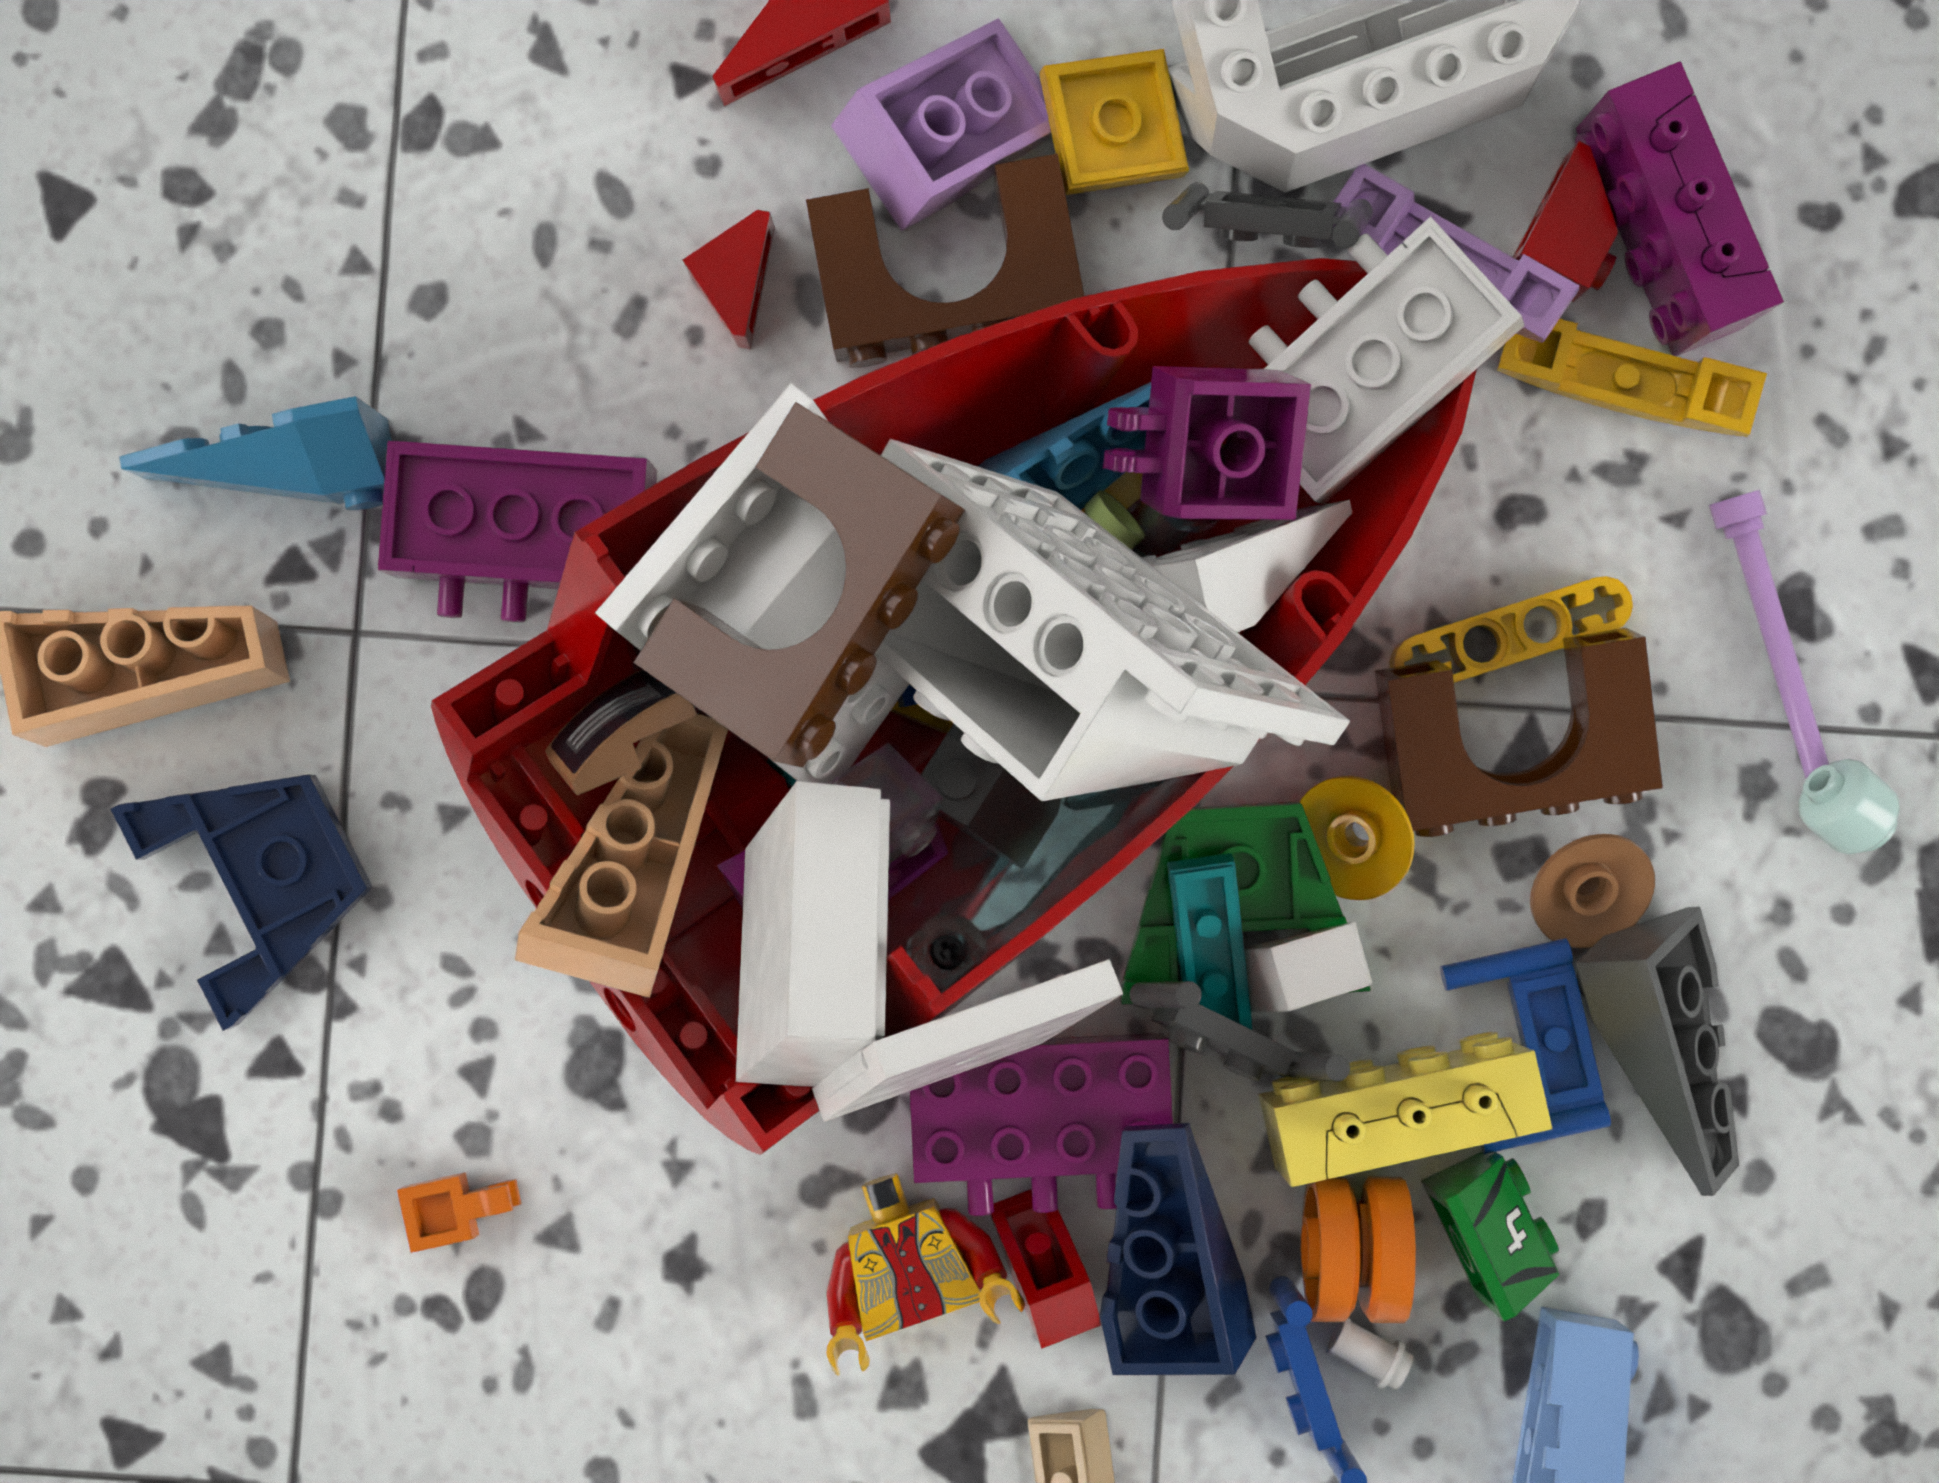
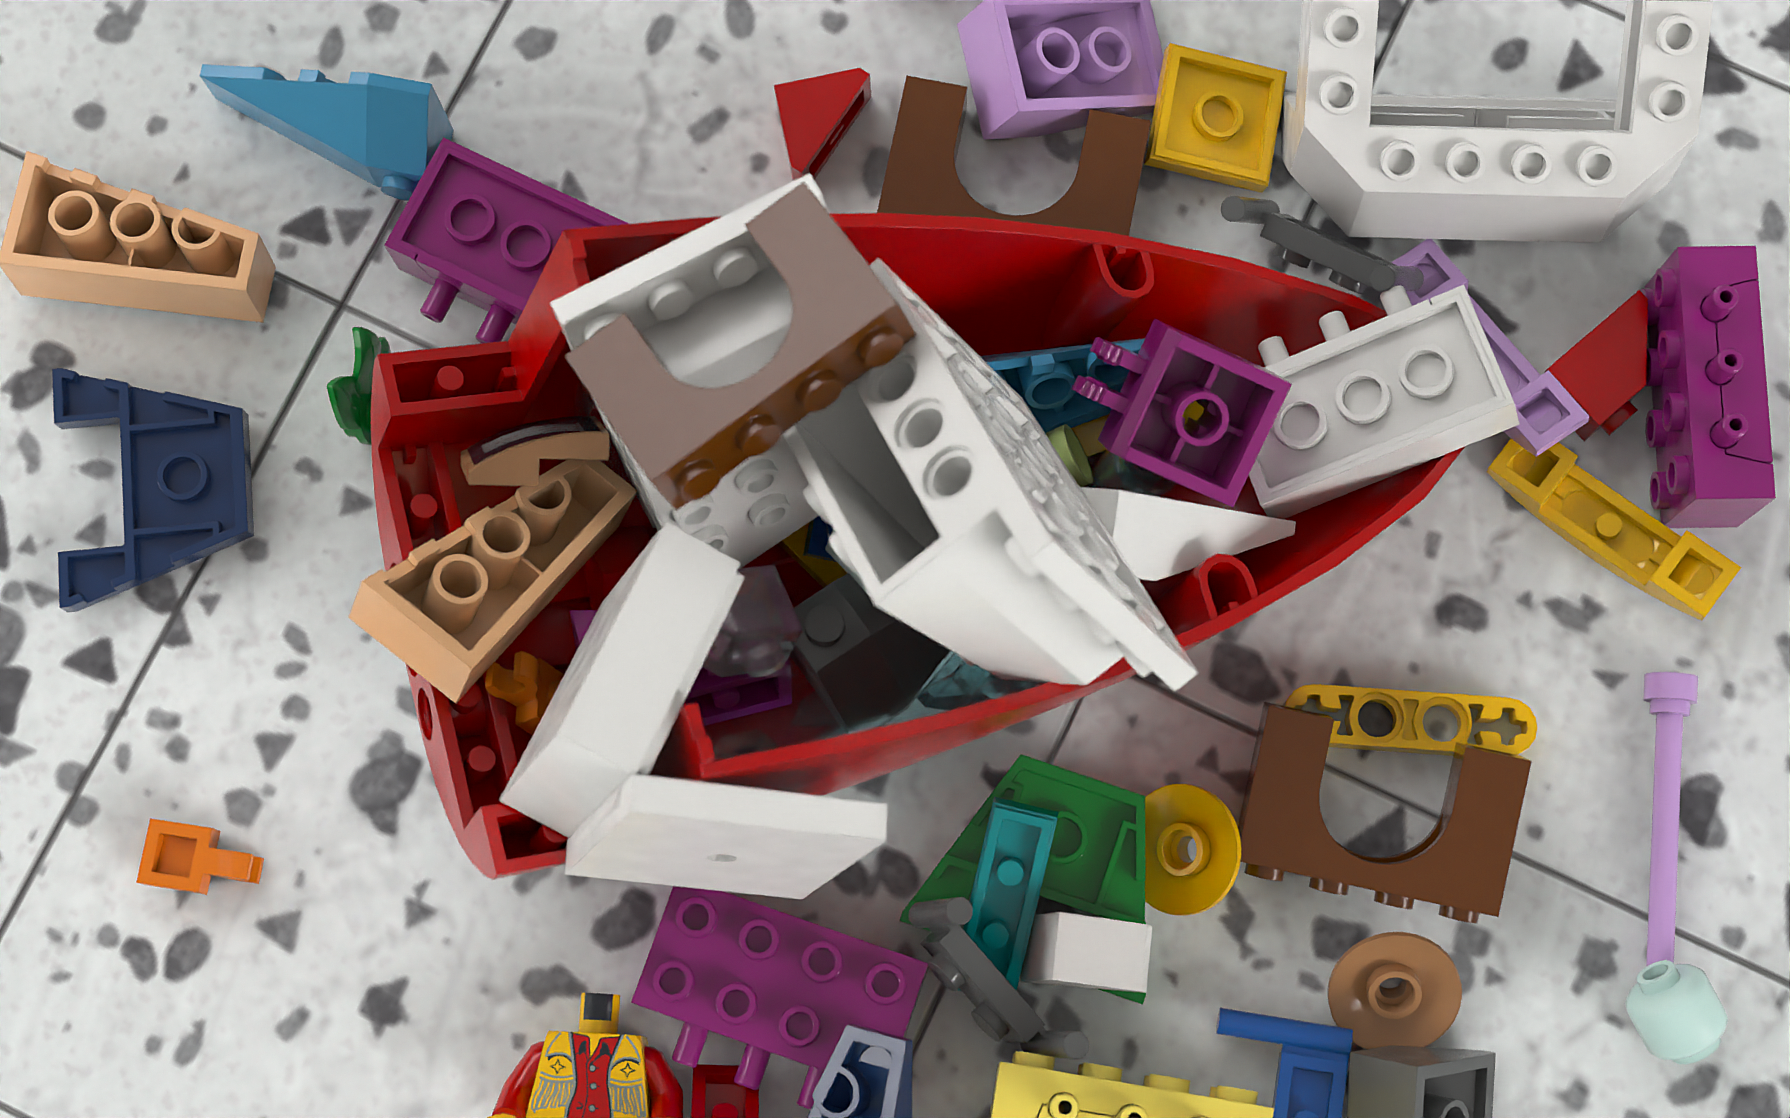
camera: 25 degrees right, 10 degrees down
(414, 725) = (352, 394): none -> green plate
(710, 945) = (527, 687): none -> orange plate

